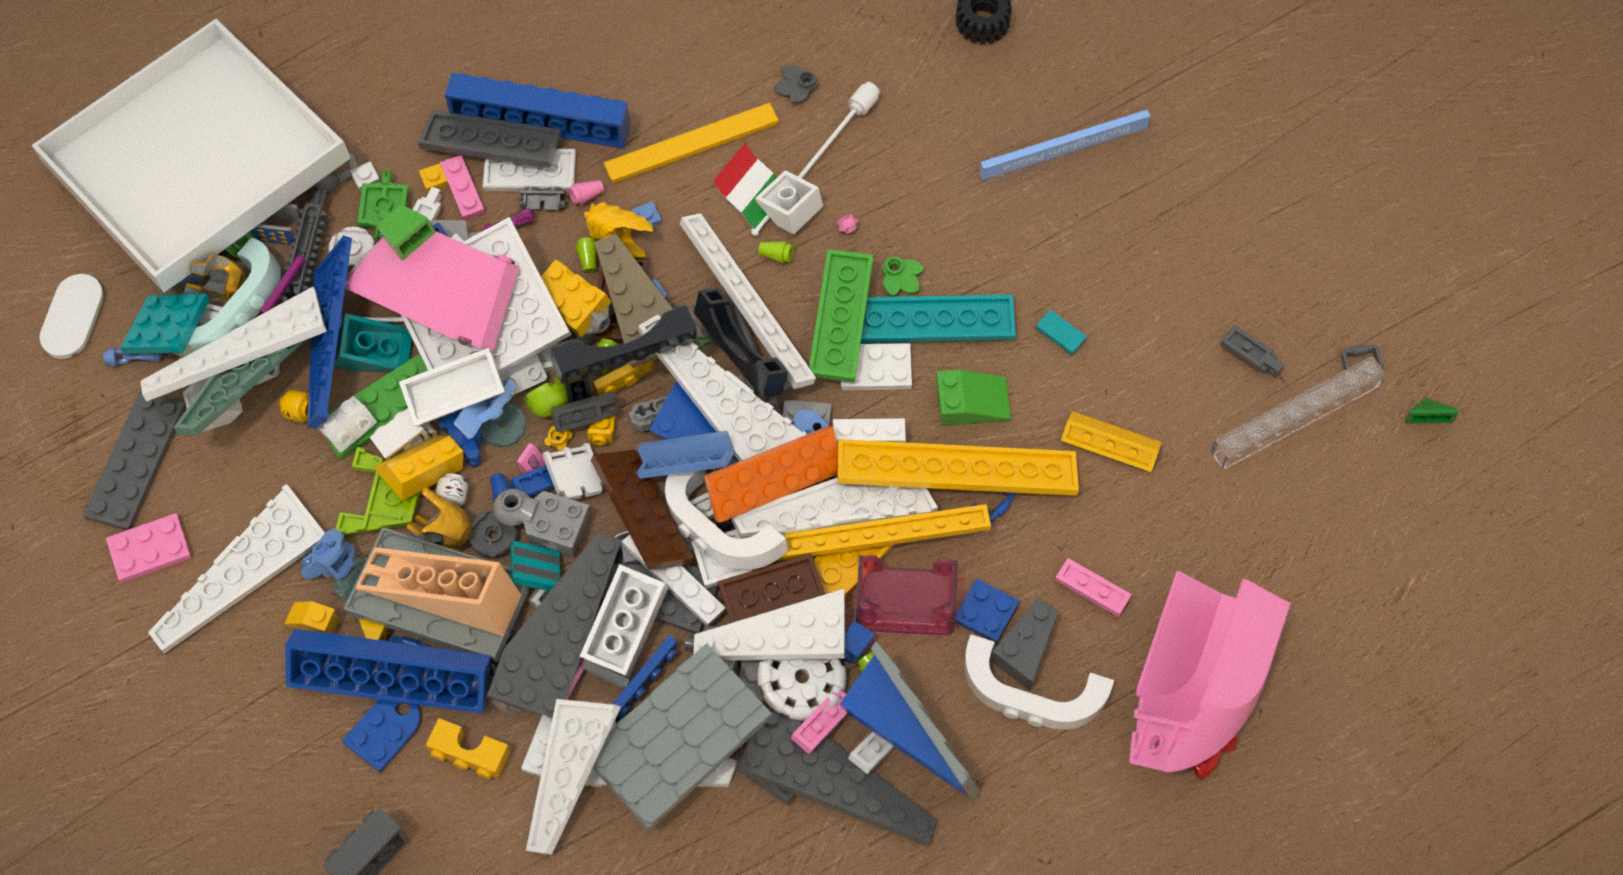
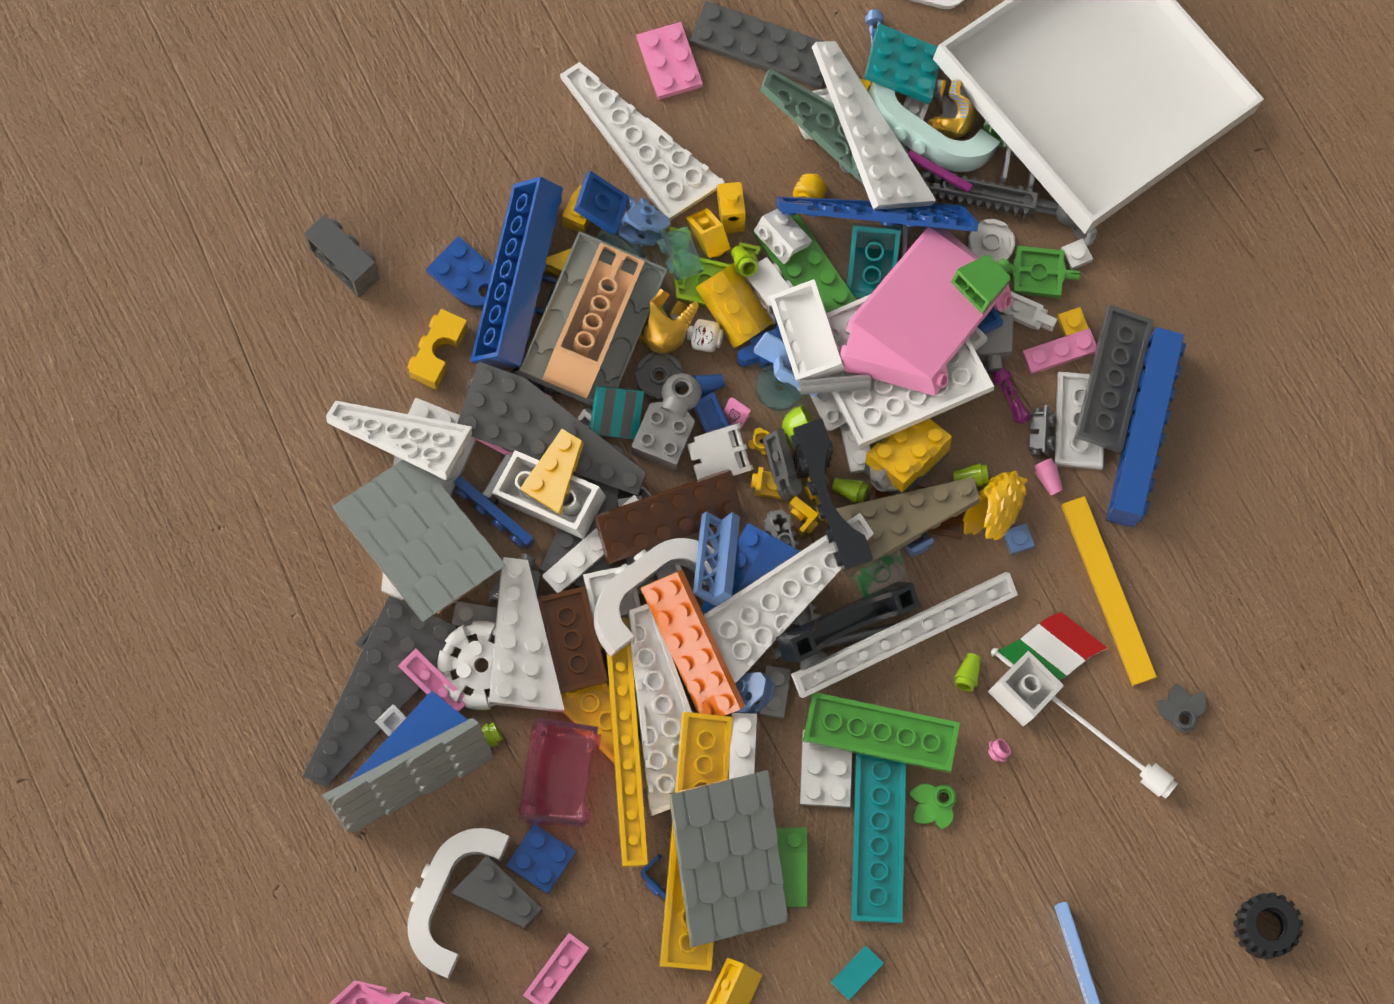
camera: 90 degrees right, 10 degrees up
(311, 591) = (601, 203): none -> blue plate
(314, 475) = (731, 204): none -> yellow torso
(340, 495) = (709, 233): none -> yellow slope
(364, 518) = (681, 253): none -> clear light blue bracket
(375, 454) = (744, 262): none -> lime cone
(507, 357) = (835, 384): none -> light grey axle
(605, 609) = (554, 471): none -> yellow wing
(631, 394) = (802, 511): none -> yellow bracket
(857, 642) = (513, 721): blue brick -> none
(967, 428) = (728, 857): none -> light grey piece

